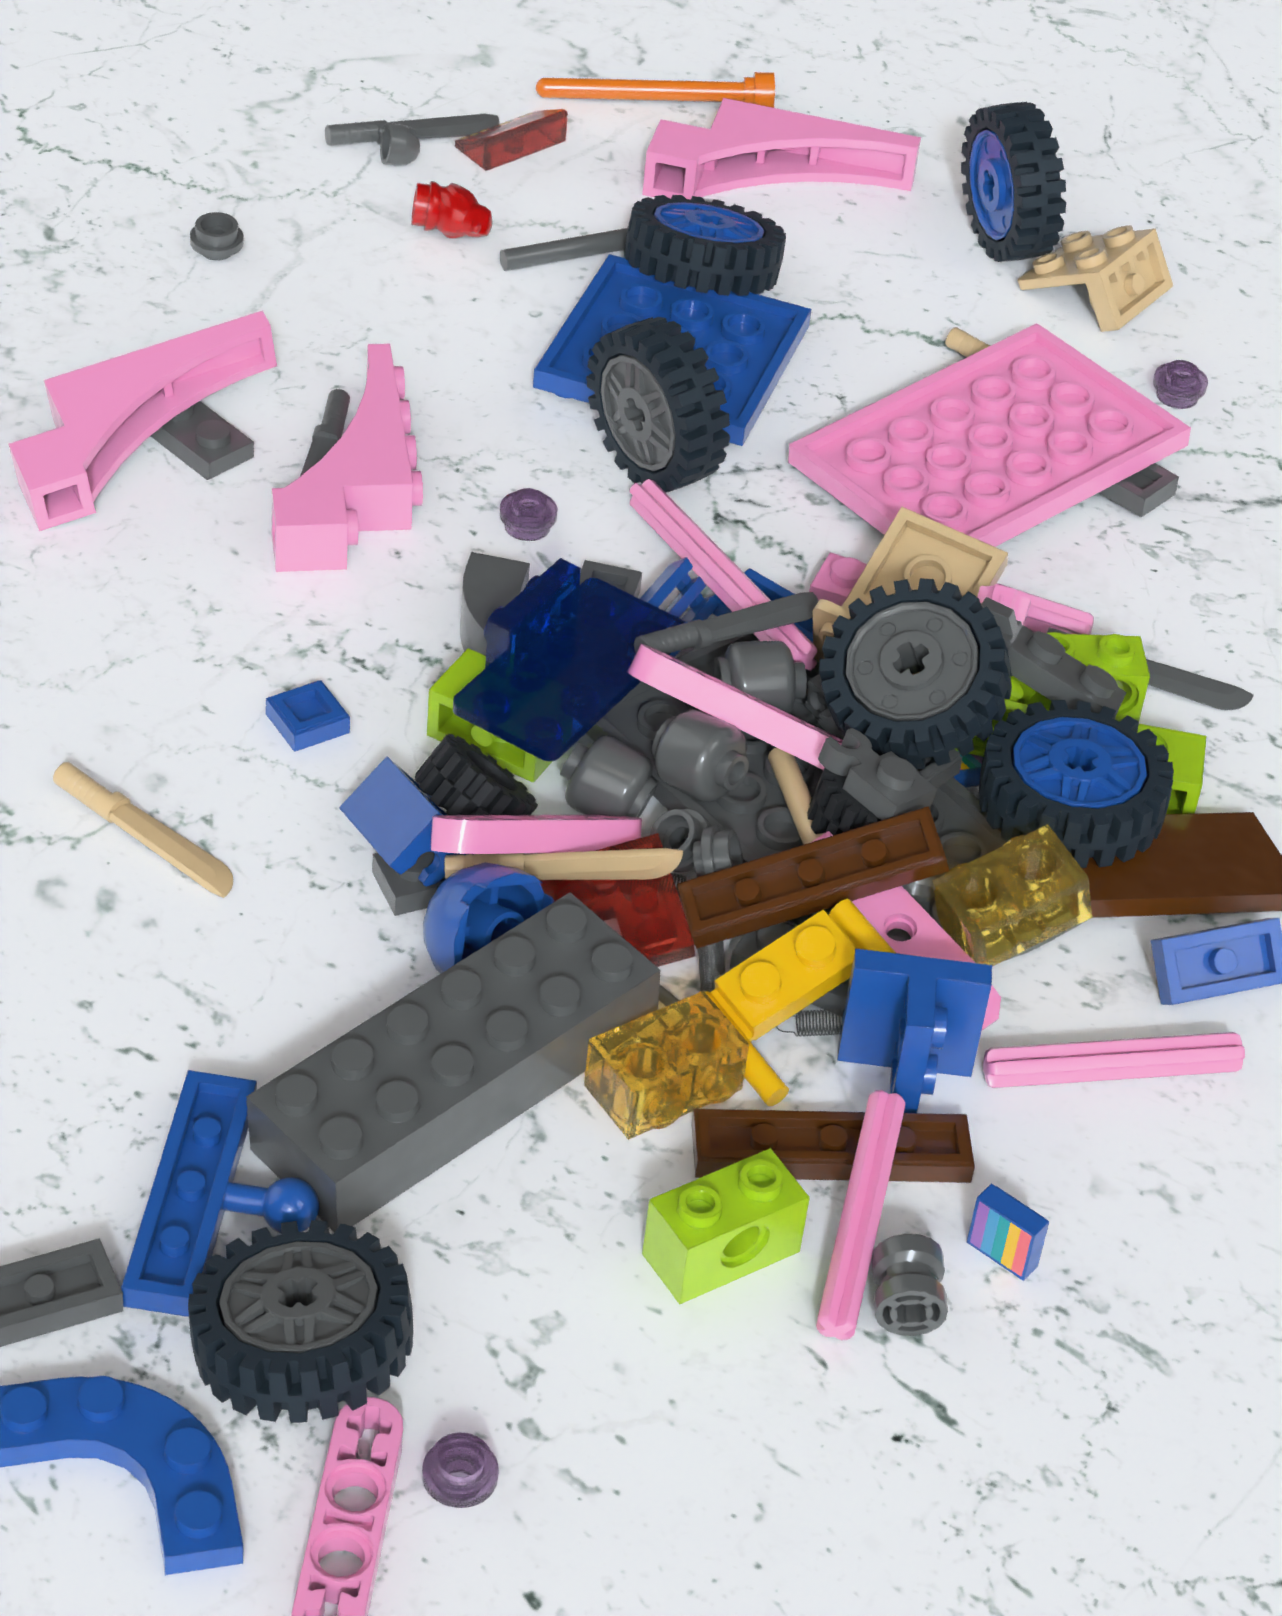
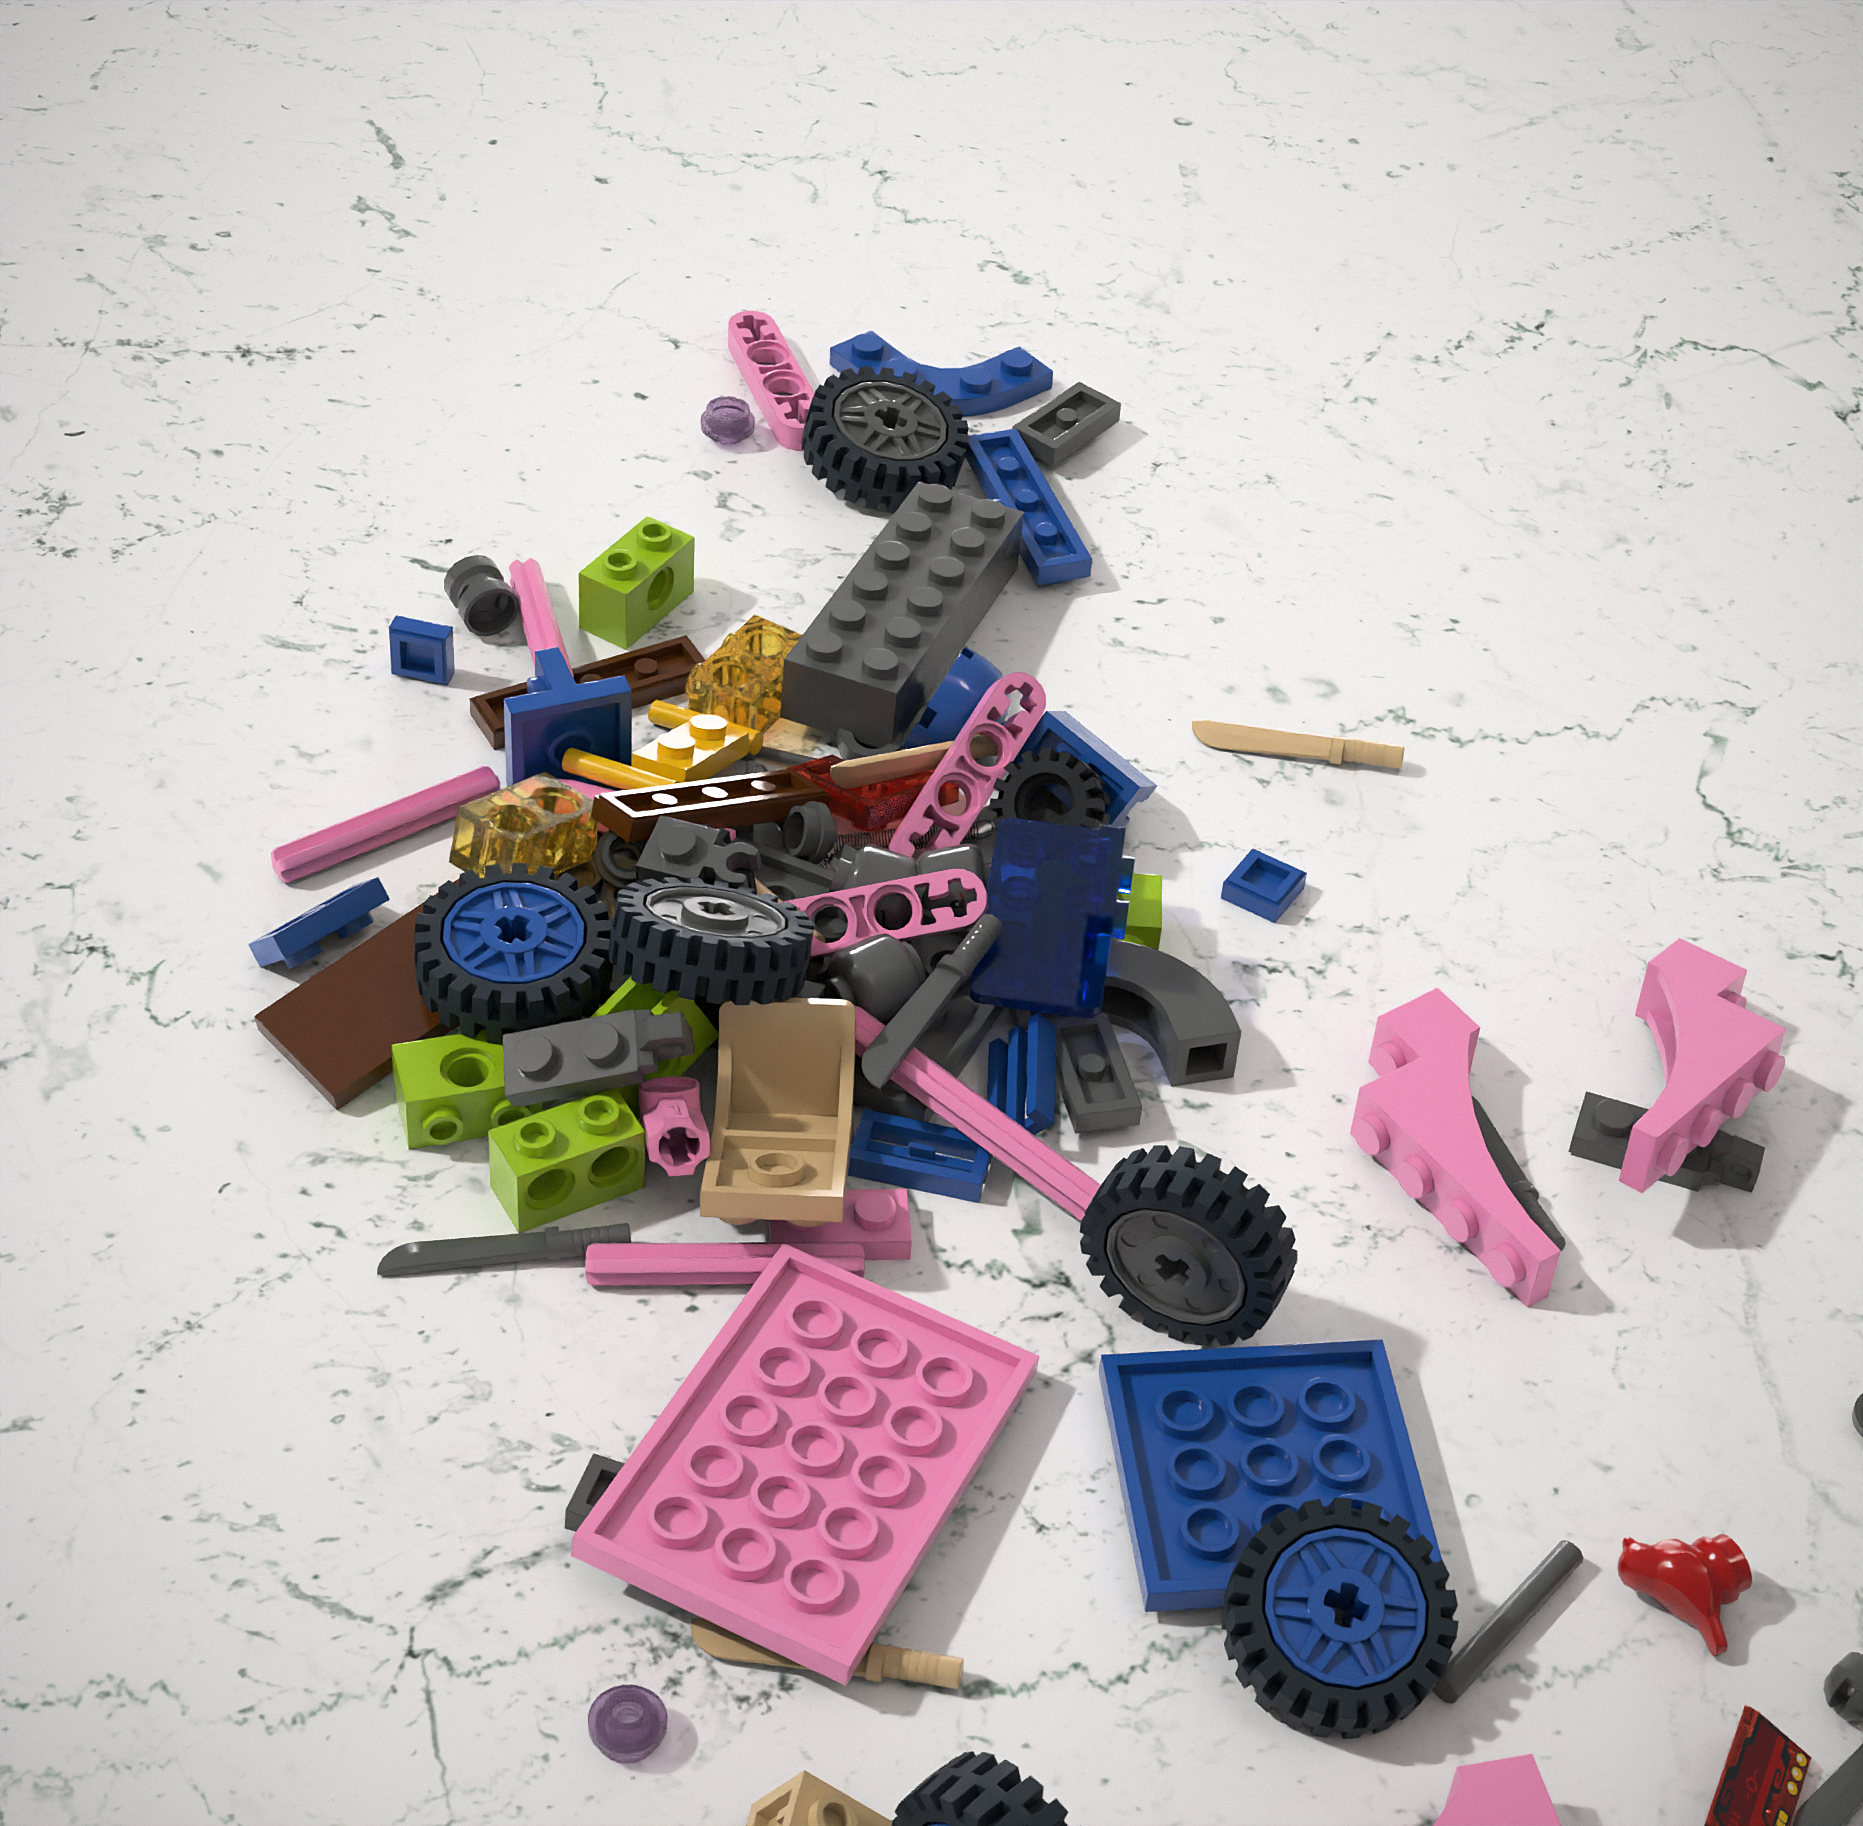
camera: 155 degrees right, 0 degrees up
(528, 514) = (1256, 1161): clear purple plate -> none

